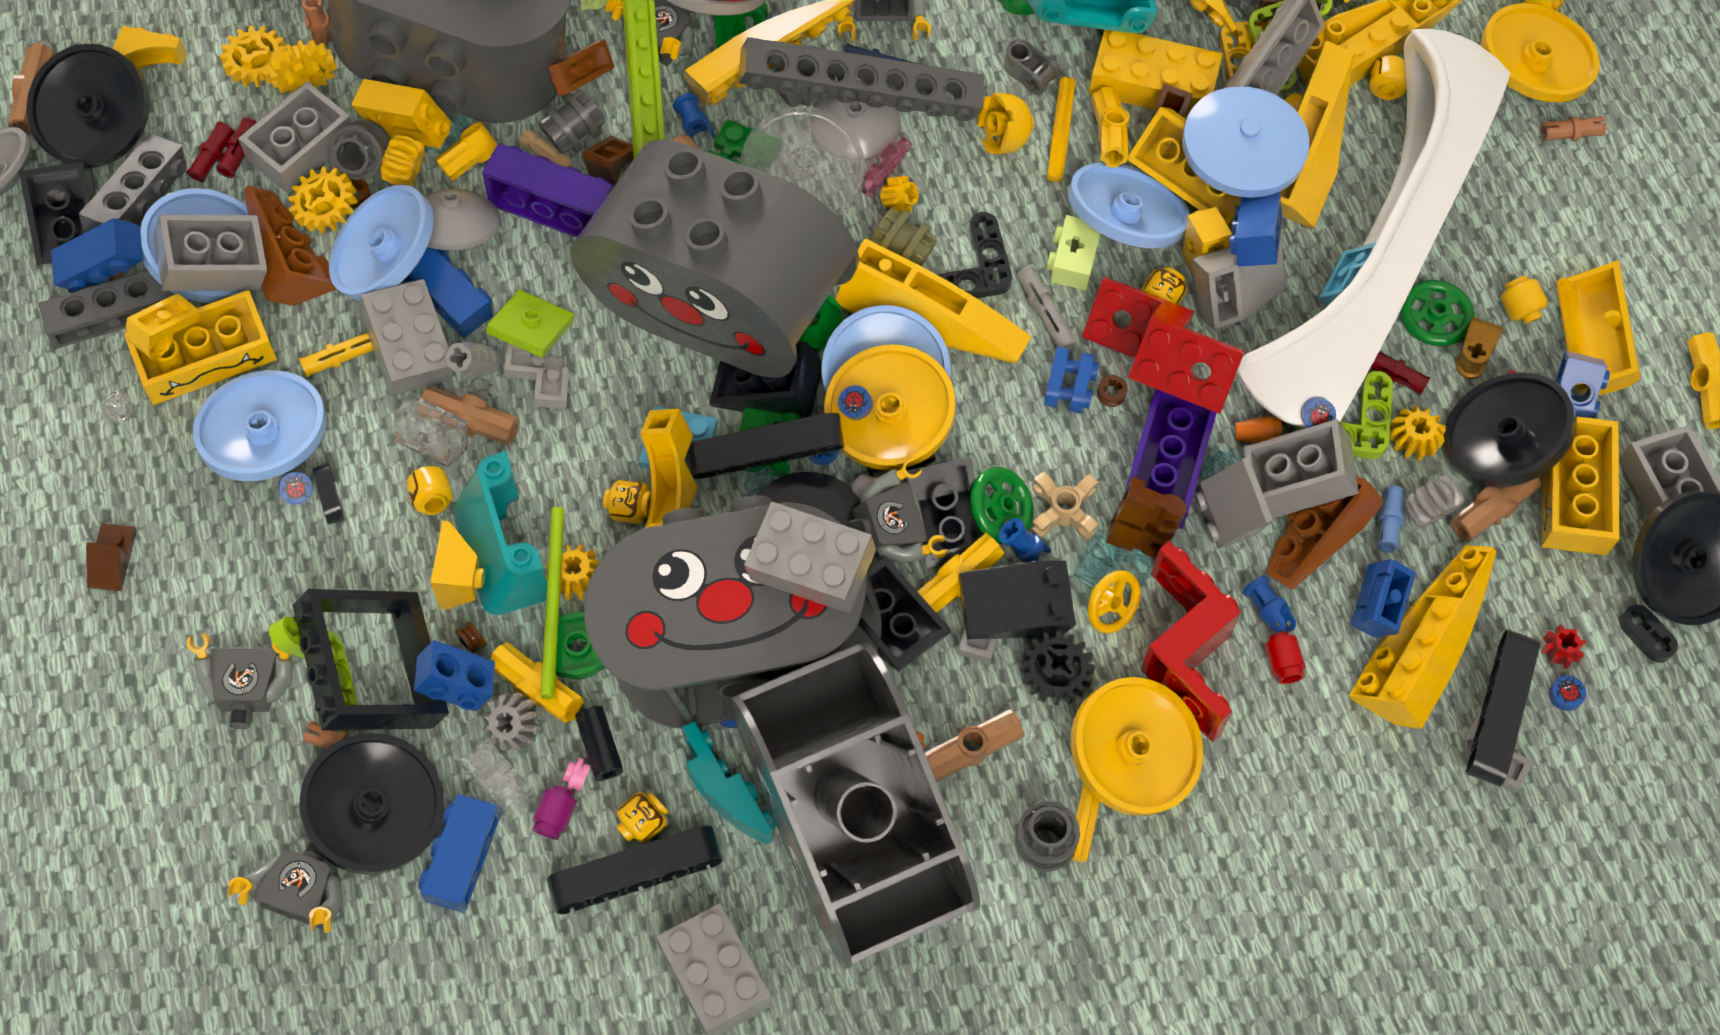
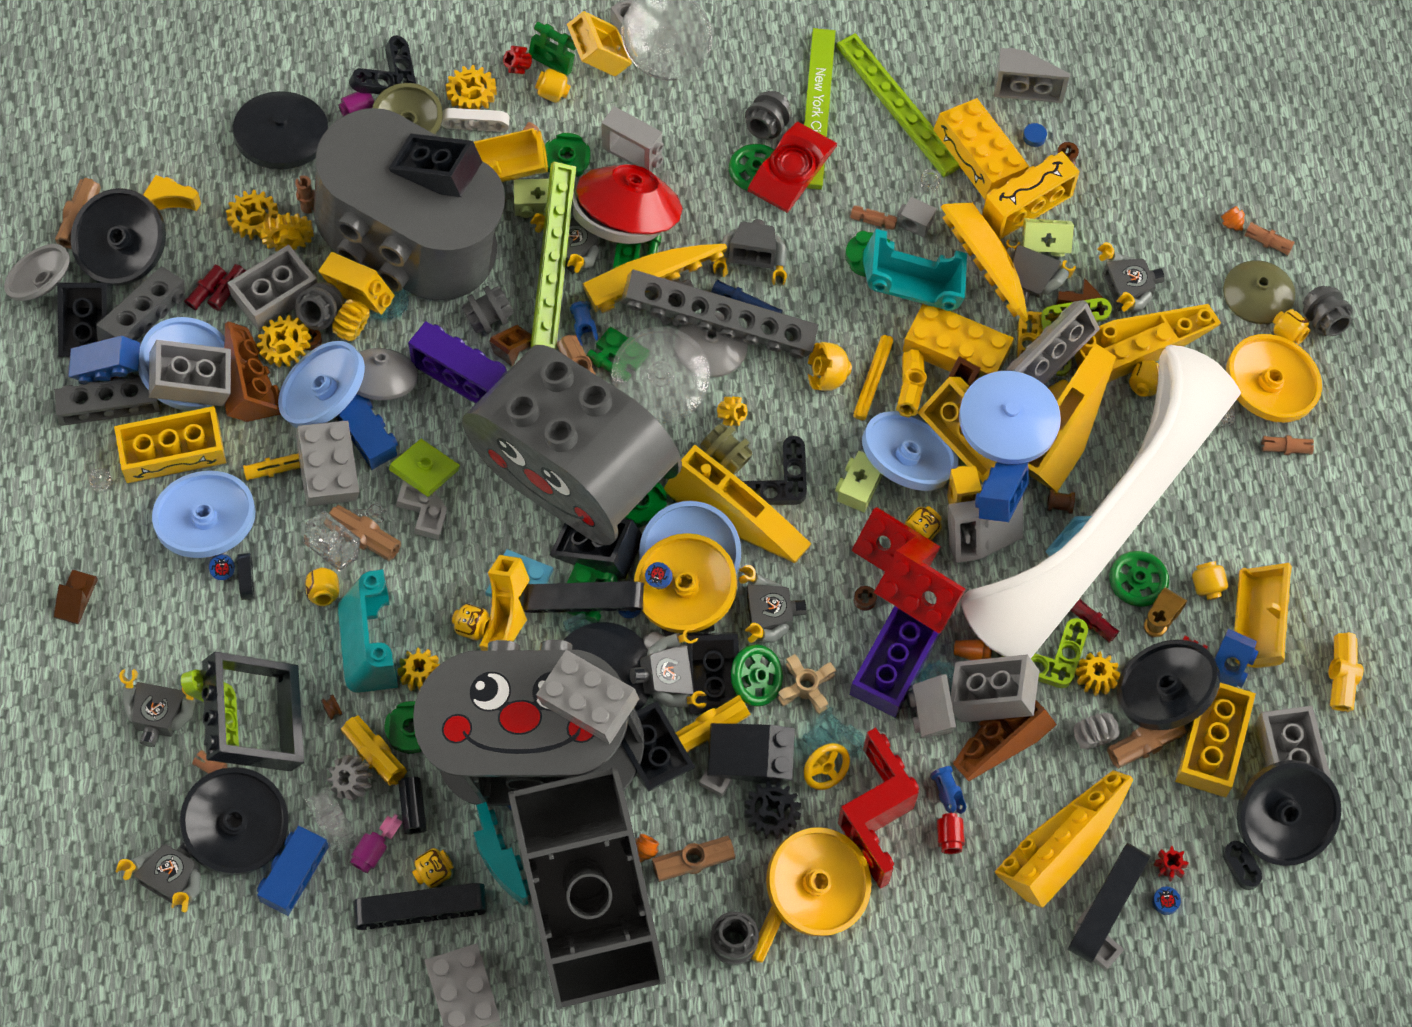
camera: 10 degrees right, 0 degrees up
(154, 327) = (139, 424): yellow plate -> none
(454, 676) = (313, 735): blue brick -> none
(455, 570) = (329, 653): yellow slope -> none
(473, 358) = (374, 489): light grey axle -> none
(474, 146) = (407, 317): yellow piece -> none
(542, 148) = (463, 329): tan axle -> none
(552, 603) = (397, 691): lime piece -> none
(581, 67) = (503, 267): dark orange plate -> none
(892, 157) = (733, 379): clear pink plate -> none
(997, 420) = (768, 607): none -> torso
(1026, 545) = (767, 708): blue piece -> none
(1031, 281) = (825, 513): light grey pin -> none
(1032, 68) = (862, 325): flat silver piece -> none
(1079, 396) = (838, 597): blue brick -> none
(1145, 519) = (864, 706): reddish brown legs -> none
(1317, 411) = (1015, 645): tile -> none
(1322, 237) = (1061, 501): none -> reddish brown bush
(1383, 598) = (1037, 800): blue brick -> none
(1391, 519) = (1060, 738): medium blue pin -> none

